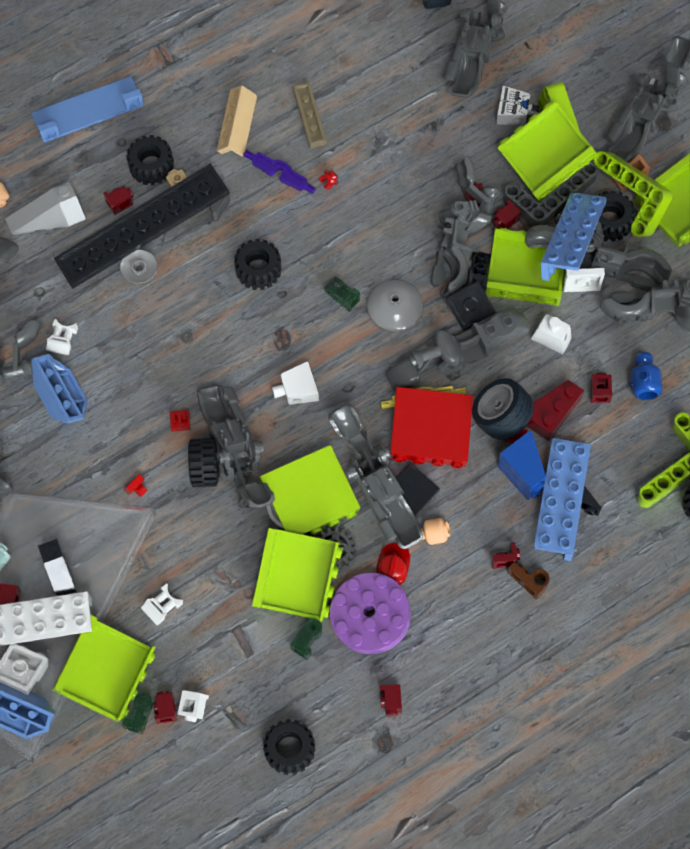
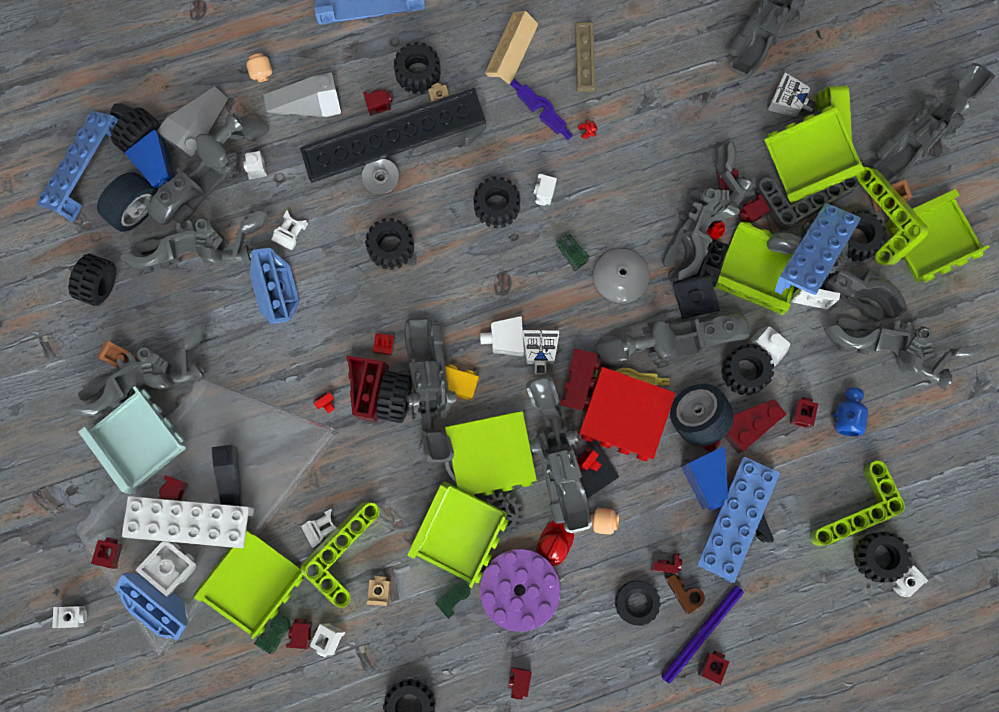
camera: 10 degrees right, 10 degrees up
(13, 284) = (255, 165): none -> white brick
(161, 312) = (384, 230): none -> black tyre
(172, 458) = (365, 383): none -> dark red wedge
(180, 617) = (336, 551): none -> lime beam
(235, 655) = (383, 598): none -> tan brick
(269, 435) = (462, 382): none -> yellow brick
(301, 242) = (544, 189): none -> white brick
(333, 387) = (540, 348): none -> torso
(379, 406) = (580, 379): none -> dark red wedge
(406, 478) = (588, 460): none -> red tile
(476, 242) = (717, 231): none -> red plate
(497, 588) = (652, 607): none -> black tyre
(540, 347) = (760, 361): none -> black tyre
(556, 614) = (702, 634): none -> dark purple axle
(573, 648) = (718, 673): none -> dark red brick

